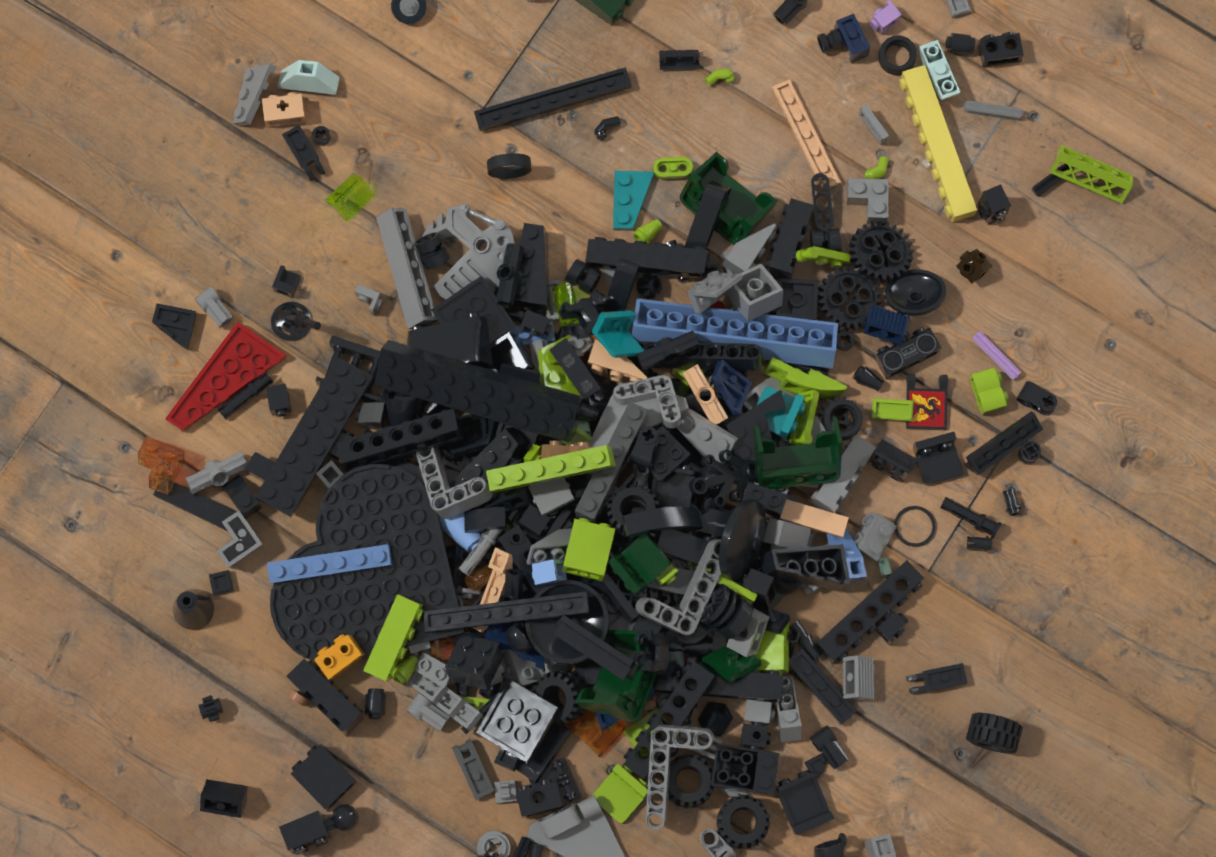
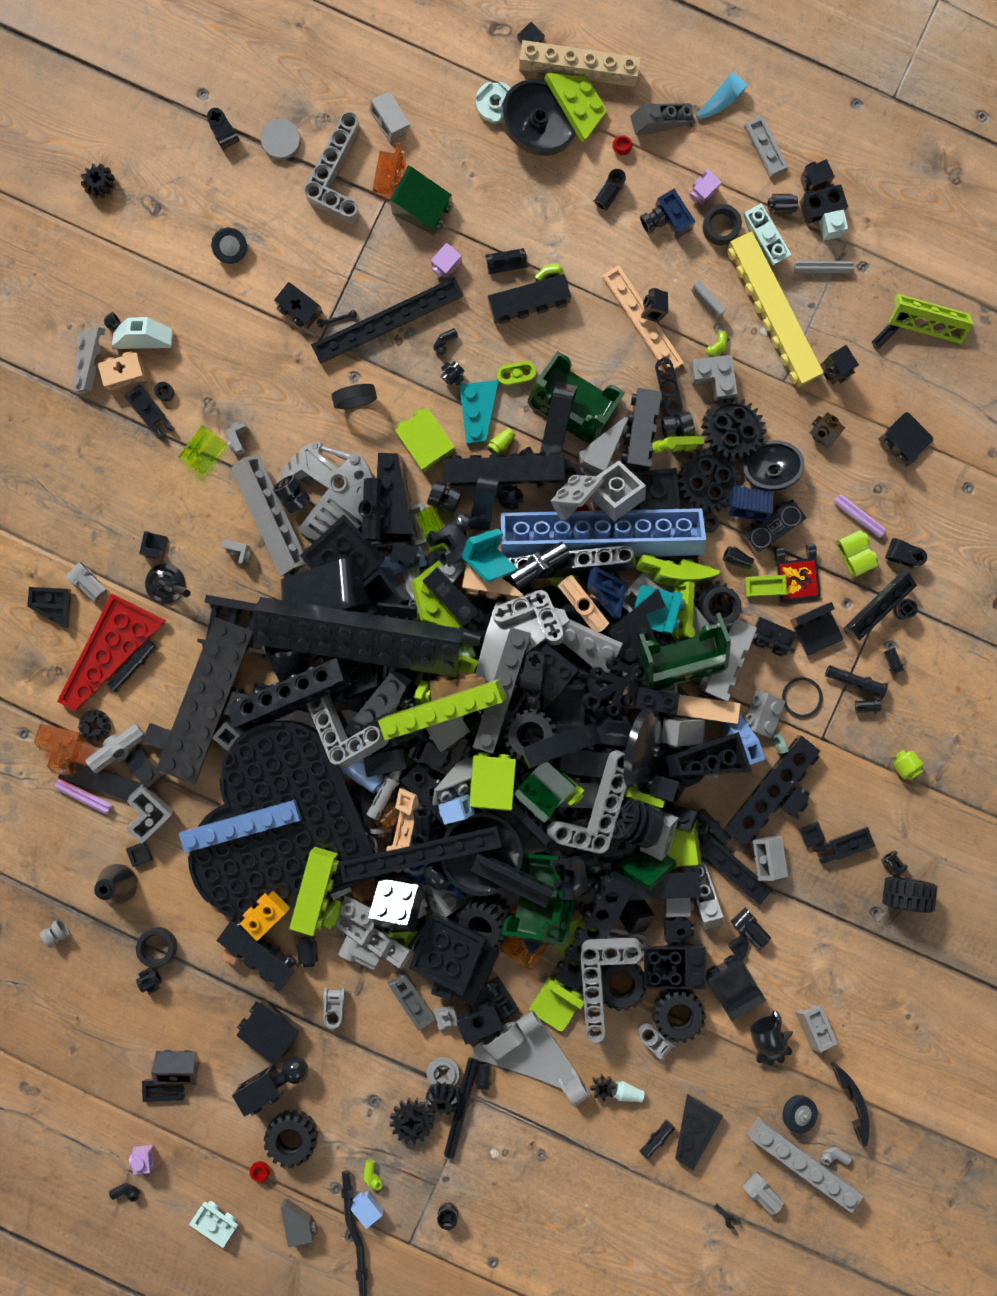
camera: 10 degrees left, 10 degrees up
(119, 650) = (56, 932): none -> light grey wheel
(174, 516) = (83, 796): none -> lavender axle
(200, 457) = (102, 721): none -> black gear
(218, 662) = (140, 947): none -> black tyre
(223, 824) = (181, 1096): none -> black tile
(278, 400) = (165, 666): black brick -> none
(281, 61) = (111, 321): none -> black hinge
(371, 416) = (258, 669): dark grey slope -> none
(383, 194) = (235, 443): none -> light grey bracket
(394, 759) = (333, 1003): none -> light grey piece
(463, 62) = (293, 296): none -> black brick
(486, 92) = (321, 323): none -> black hinge
(572, 218) = (424, 439): none -> lime brick
(609, 158) = (452, 373): none -> black gear
(619, 51) = (446, 261): none -> lavender brick
(696, 98) = (529, 299): none -> black brick
(819, 122) = (655, 305): none -> black brick
(905, 663) = (811, 834): none -> black tile
(984, 703) = (894, 863): none -> black bush
(997, 21) = (817, 175): none -> black brick
(1007, 71) = (833, 225): none -> light aqua brick
(1012, 607) = (908, 764): none -> lime head
(1052, 287) = (906, 439): none -> black bracket

